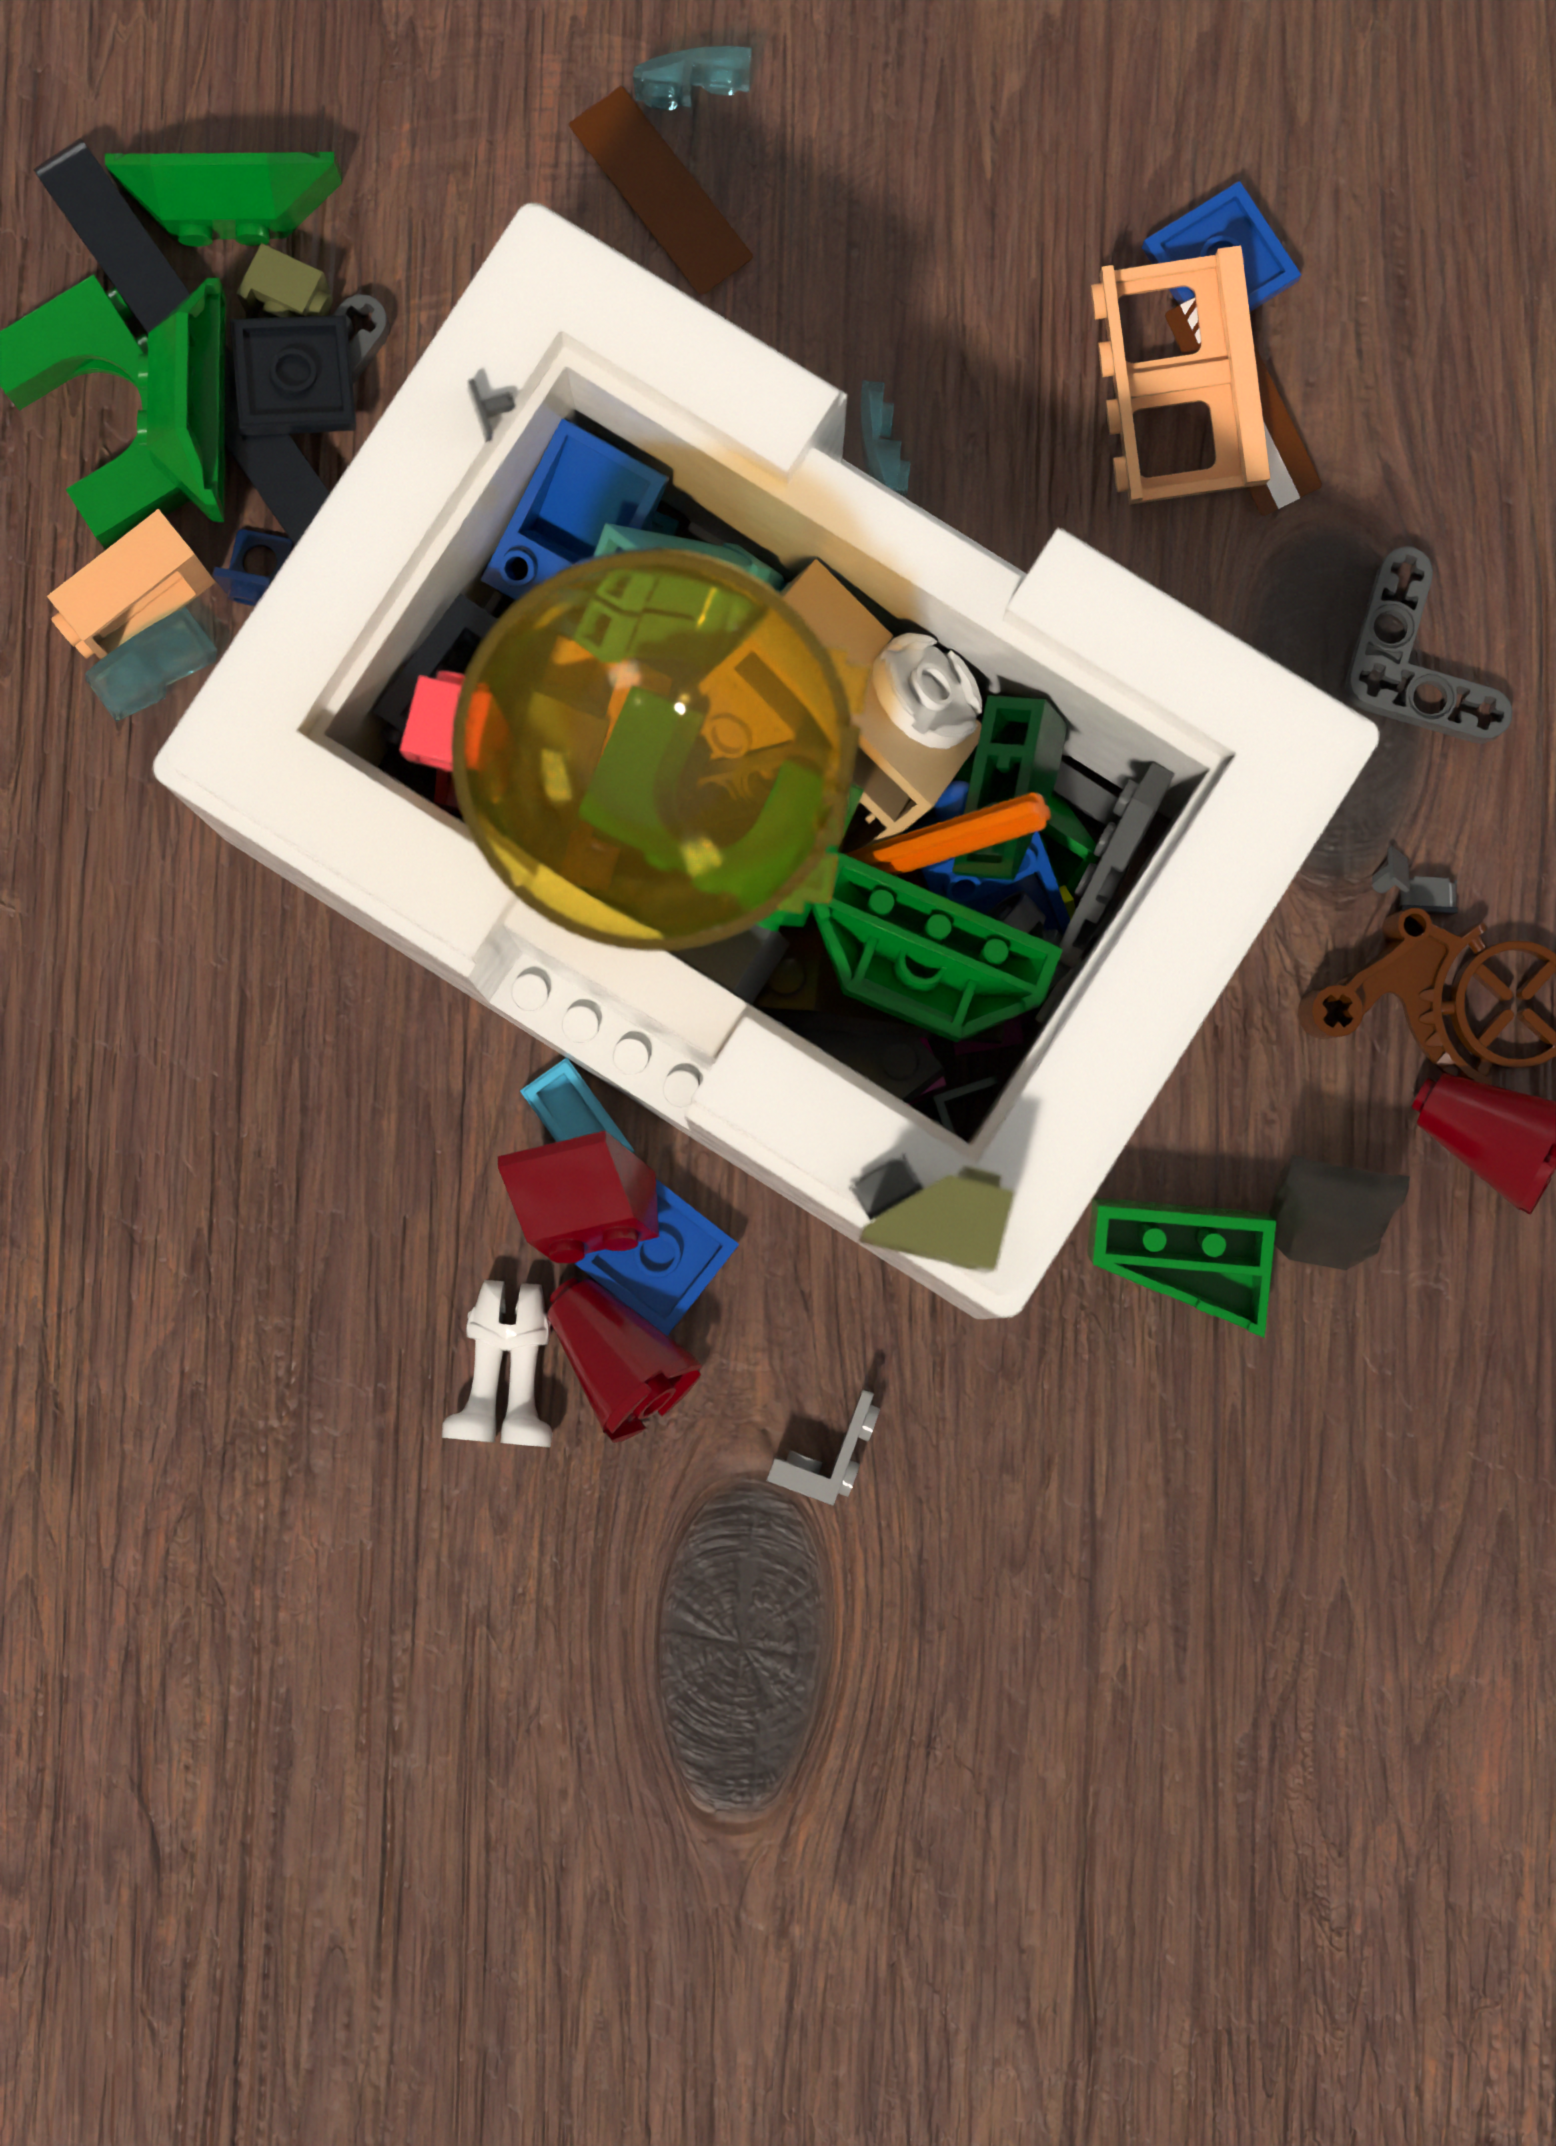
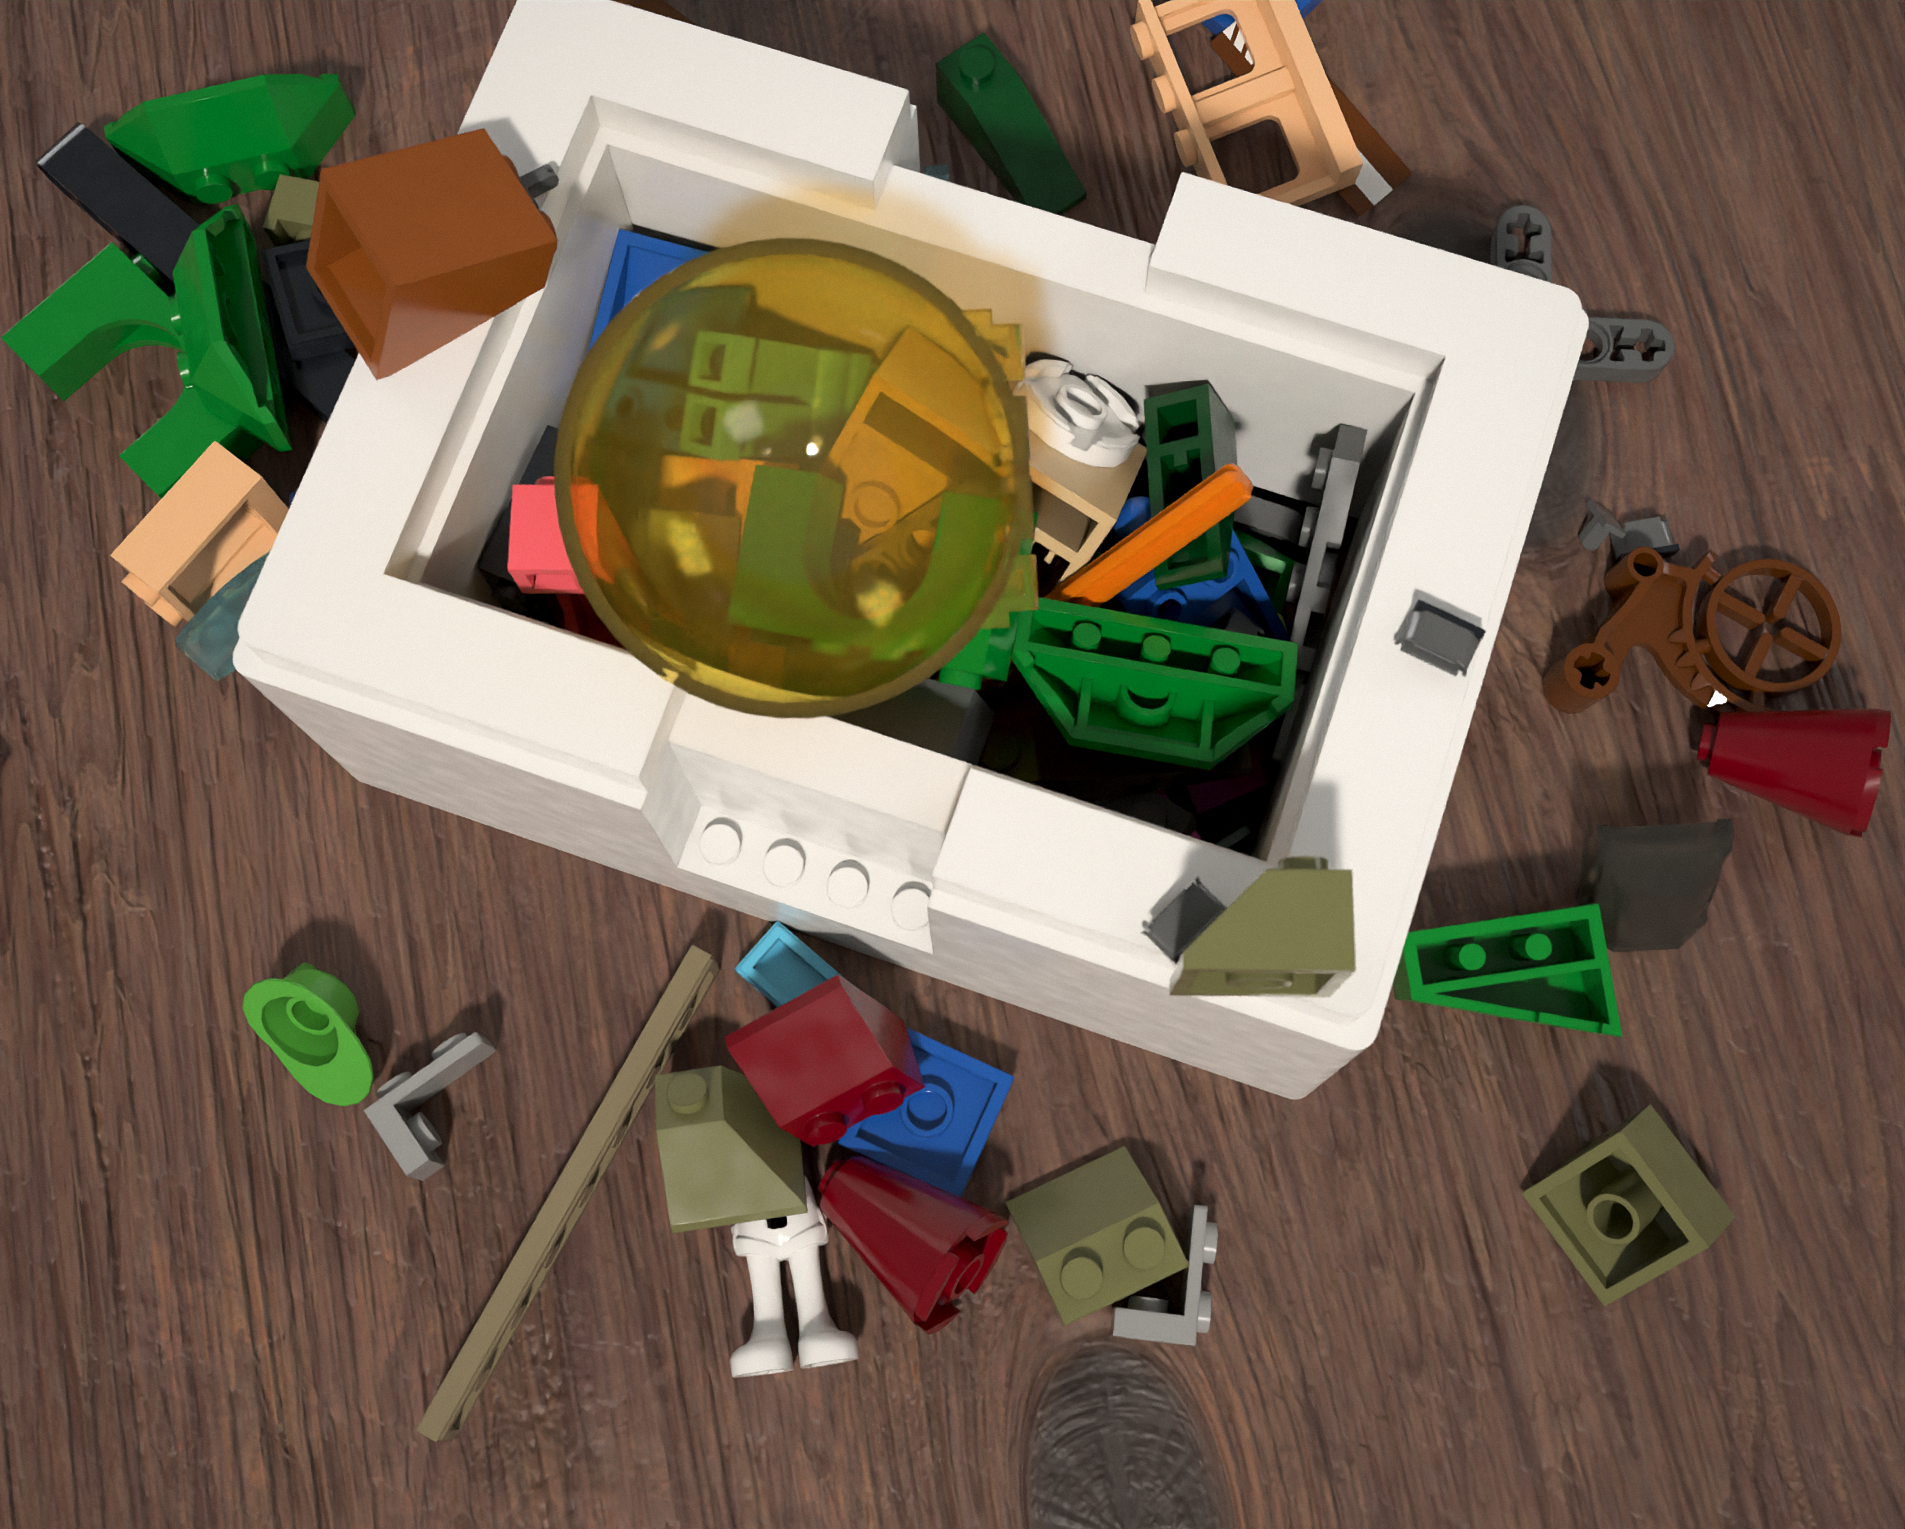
camera: 10 degrees left, 10 degrees down
(144, 1059) = (313, 1032): none -> bright green piece
(213, 1171) = (411, 1137): none -> light grey bracket
(340, 1251) = (569, 1198): none -> dark tan tile
(390, 452) = (425, 246): none -> dark orange slope
(475, 1250) = (723, 1152): none -> olive slope
(774, 1393) = (1096, 1235): none -> olive slope
(952, 356) = (1006, 127): none -> dark green slope
(1158, 1001) = (1440, 638): none -> dark grey piece
(1233, 1477) = (1629, 1206): none -> olive slope

